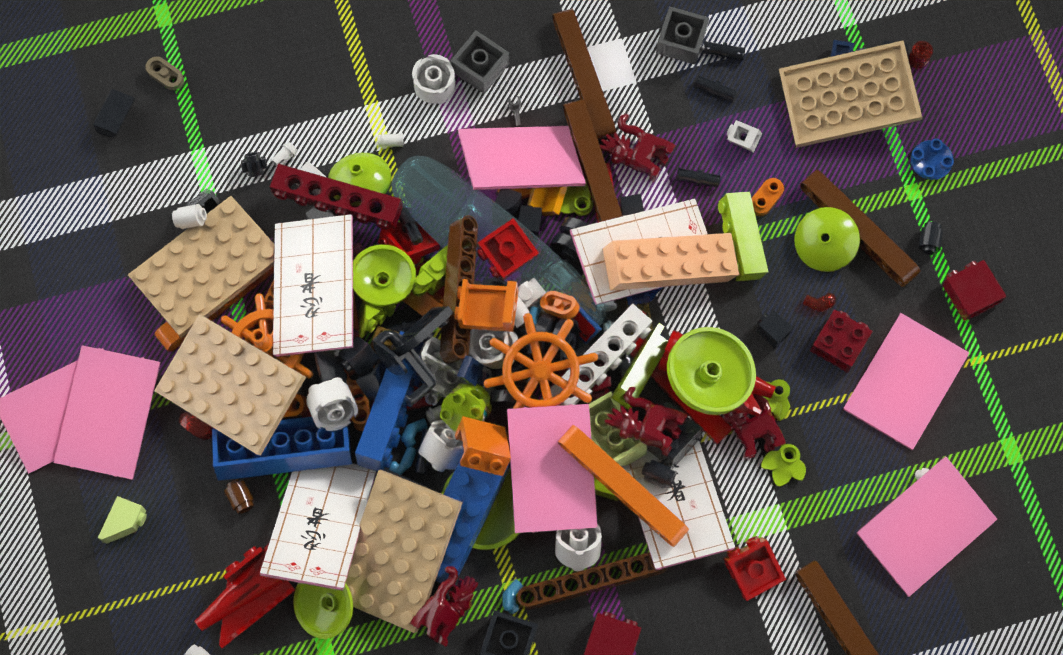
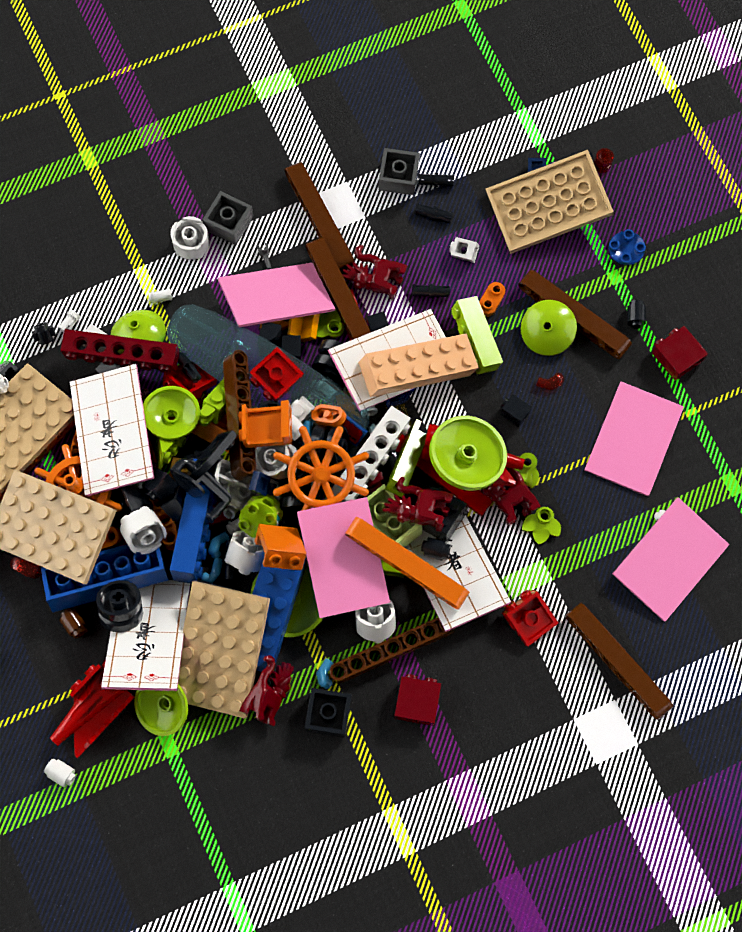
camera: 10 degrees left, 0 degrees up
(293, 485) = (119, 606): none -> black wheel
(841, 340) = (574, 412): dark red brick -> none

